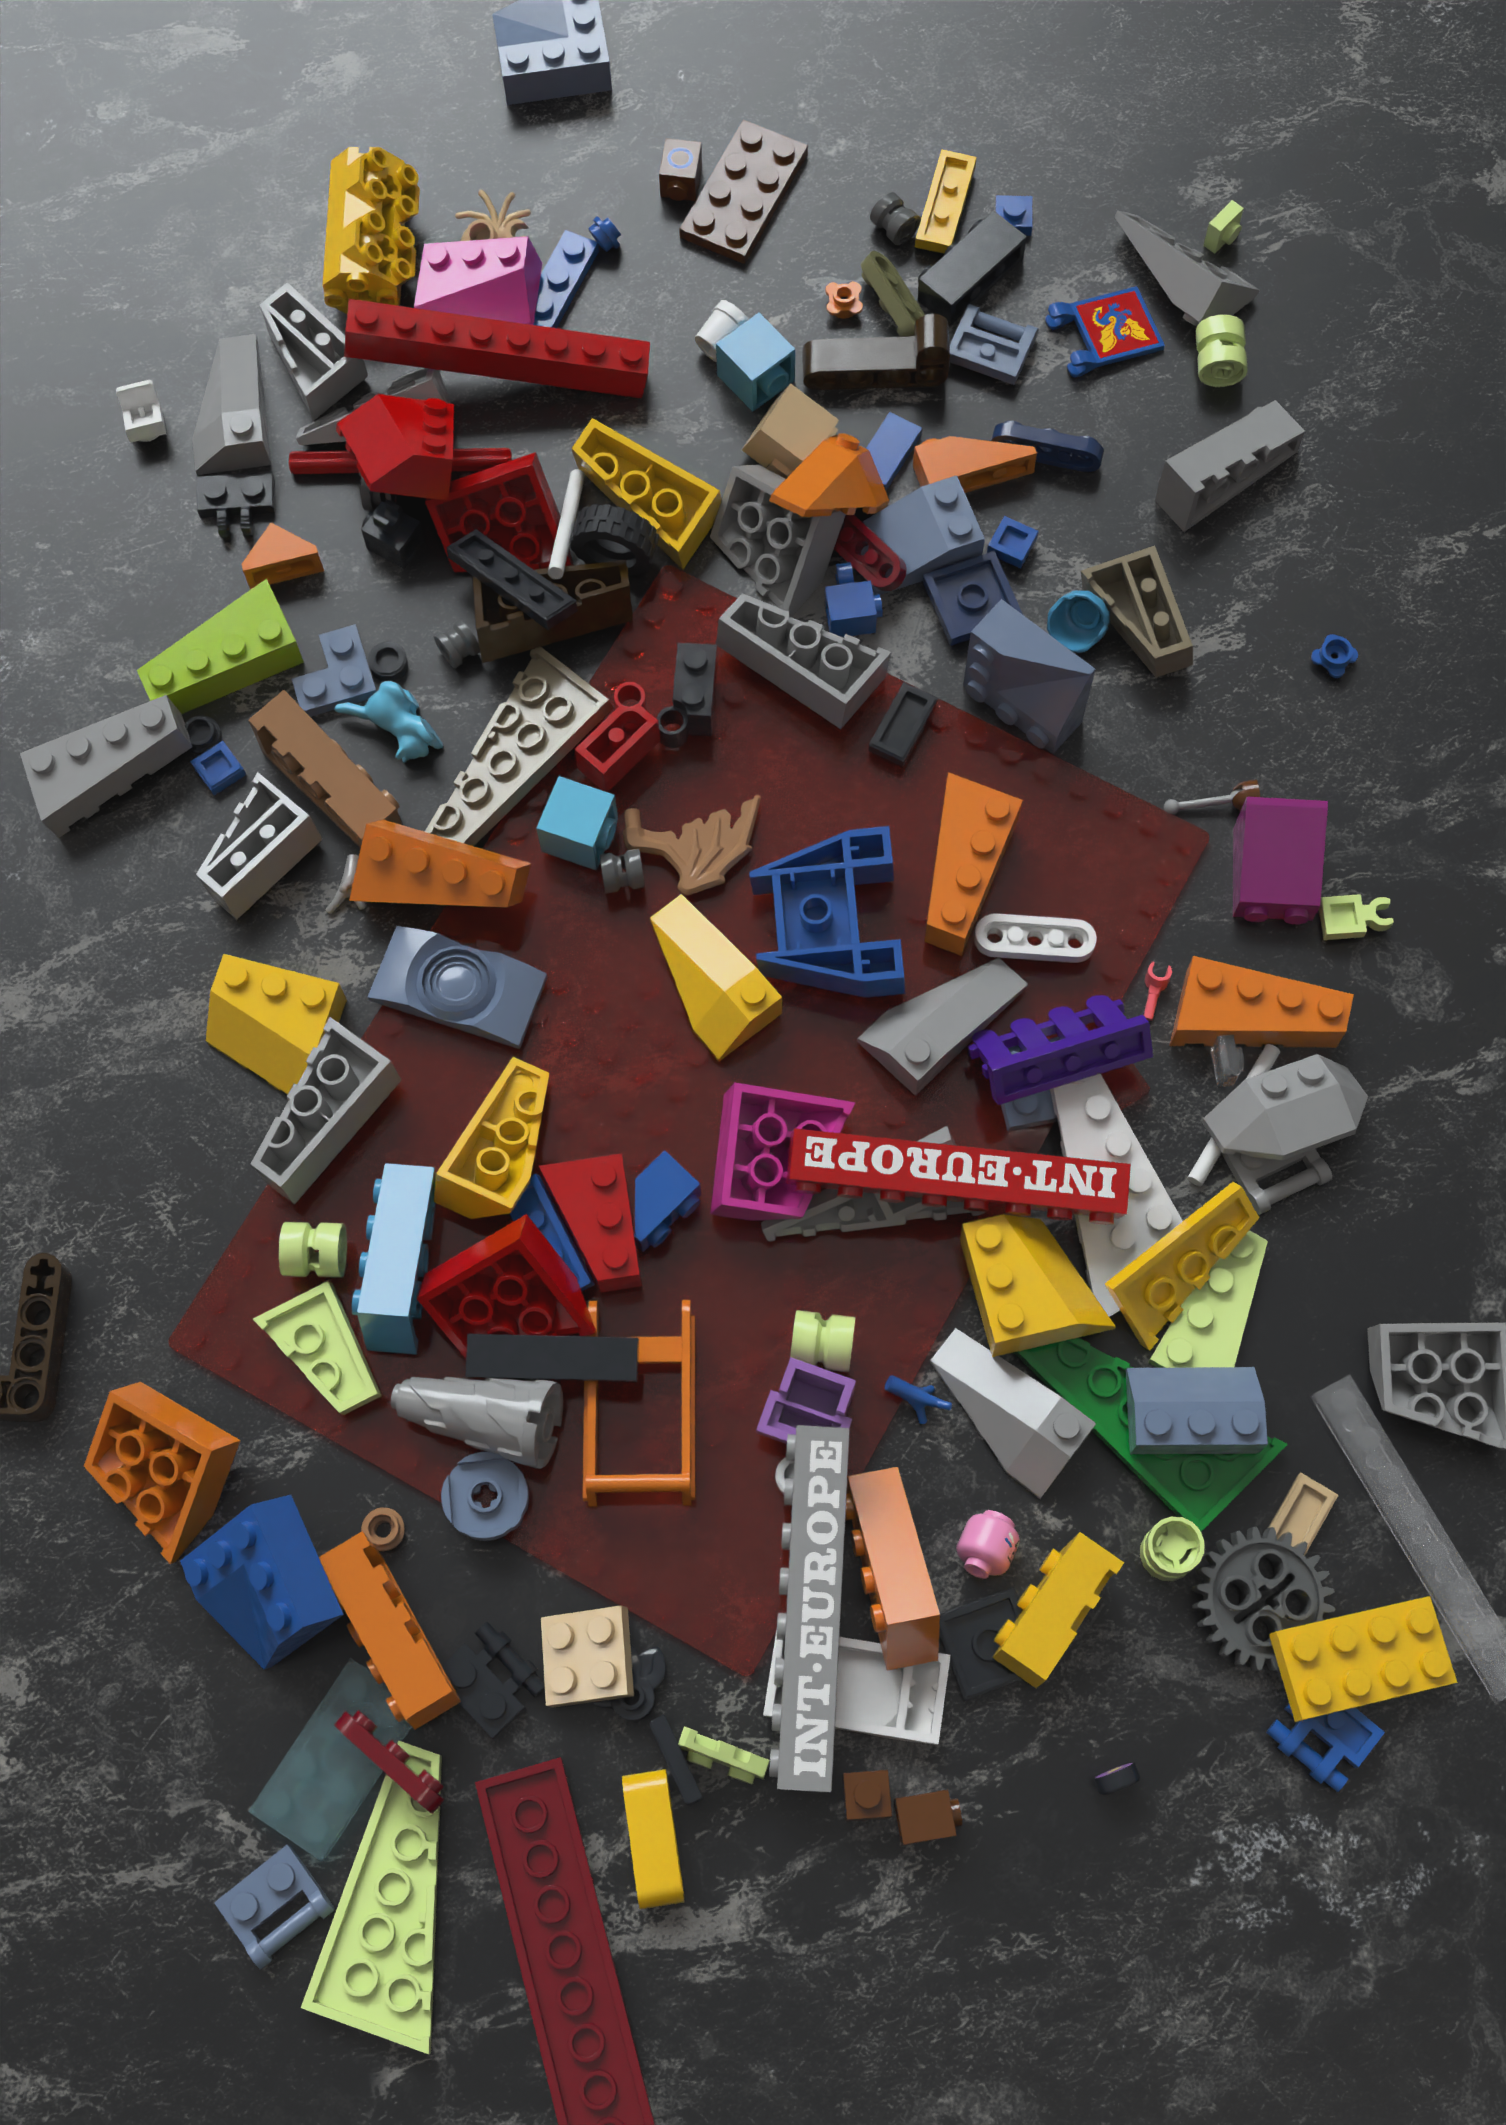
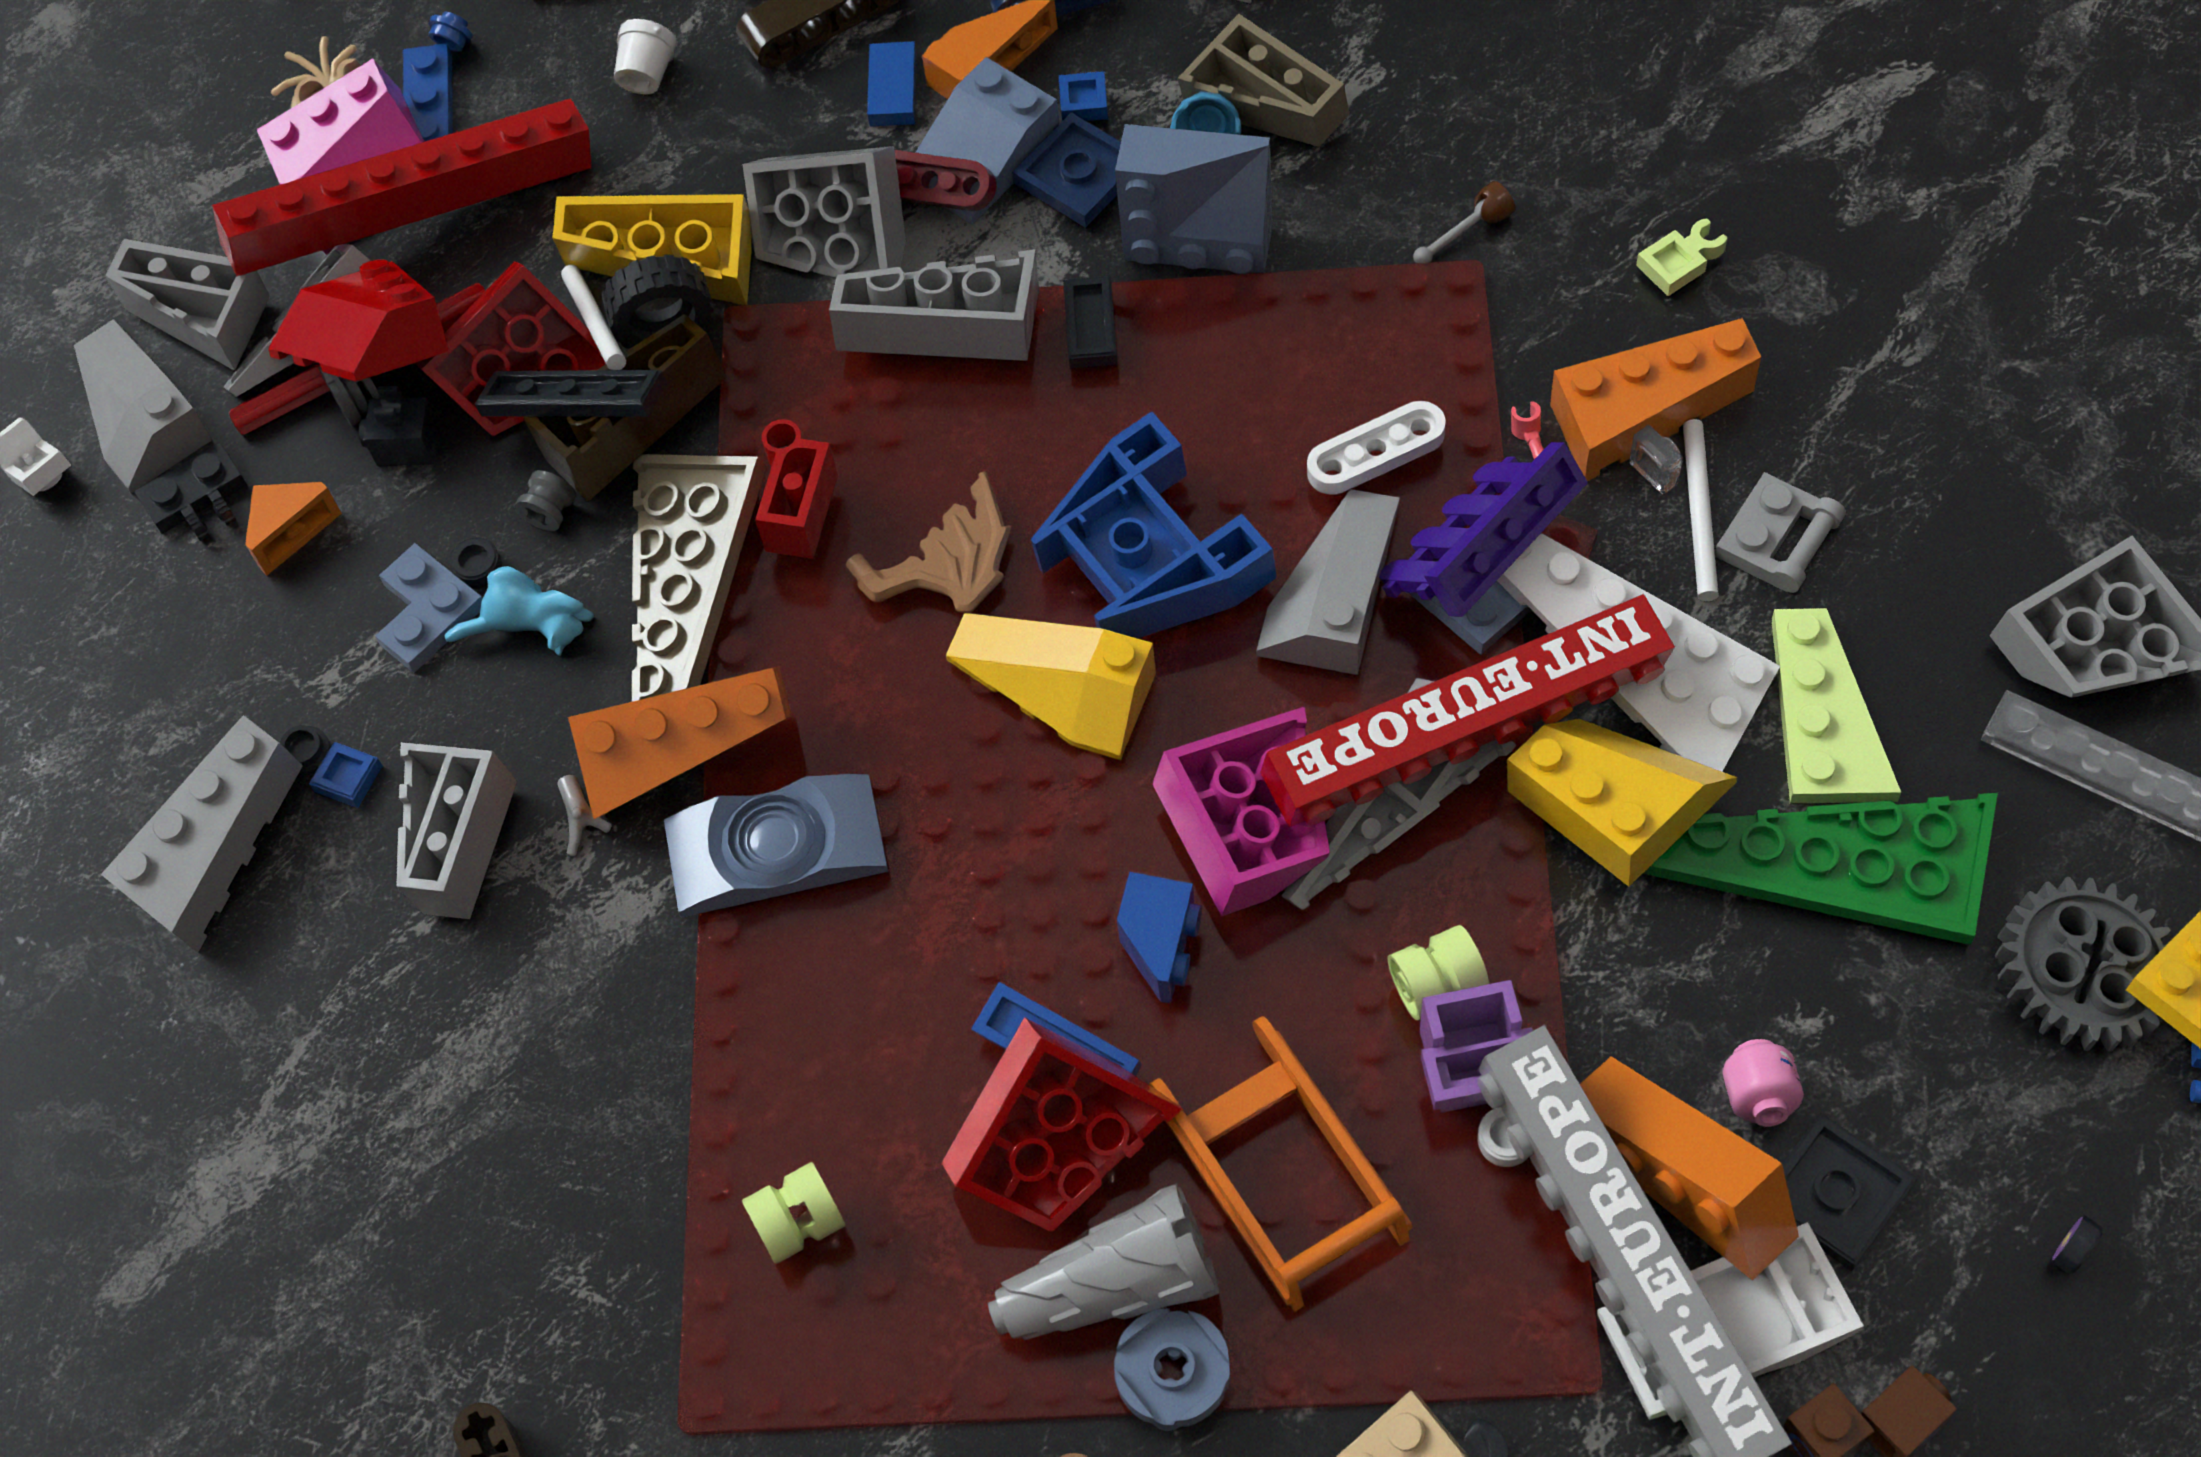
camera: 25 degrees left, 10 degrees down
(224, 653) = (283, 646): lime wedge -> none
(270, 1017) = (584, 1001): yellow wedge -> none
(321, 767) = (471, 704): medium nougat wedge -> none
(323, 1345) = (871, 1316): yellowish green wing -> none
(324, 1110) = (710, 1053): light grey wedge -> none
(366, 233) = (181, 143): yellow brick -> none
(395, 1258) = (899, 1166): wedge -> none
(498, 1147) = (939, 986): yellow wedge -> none
(552, 1358) = (1152, 1162): black tile -> none
(577, 823) = (805, 598): medium azure head -> none
(599, 1217) = (1101, 986): red wedge -> none
(612, 871) = (885, 622): dark grey wheel -> none
(692, 694) = (845, 406): black hinge -> none
(755, 361) = (696, 65): head -> none
(789, 432) = (780, 110): tan plate -> none
(833, 477) = (861, 122): orange wedge -> none
(851, 605) = (955, 235): blue brick -> none
(916, 1396) = (1575, 977): blue bar -> none
(970, 848) = (1249, 401): orange wedge -> none
(1016, 1415) = (1704, 932): light grey wedge -> none
(1055, 1608) = (1885, 1099): yellow wedge -> none
(1167, 1273) = (1757, 675): yellow wing -> none
(1172, 1548) = (1959, 967): yellowish green wheel -> none
(1195, 1411) = (1884, 812): sand blue slope -> none
(1279, 859) = (1570, 237): magenta slope -> none
(1288, 1110) = (1755, 468): light grey wedge -> none
(1303, 1510) = (2058, 850): tan tile -> none
(1335, 645) = (1485, 32): blue plate -> none

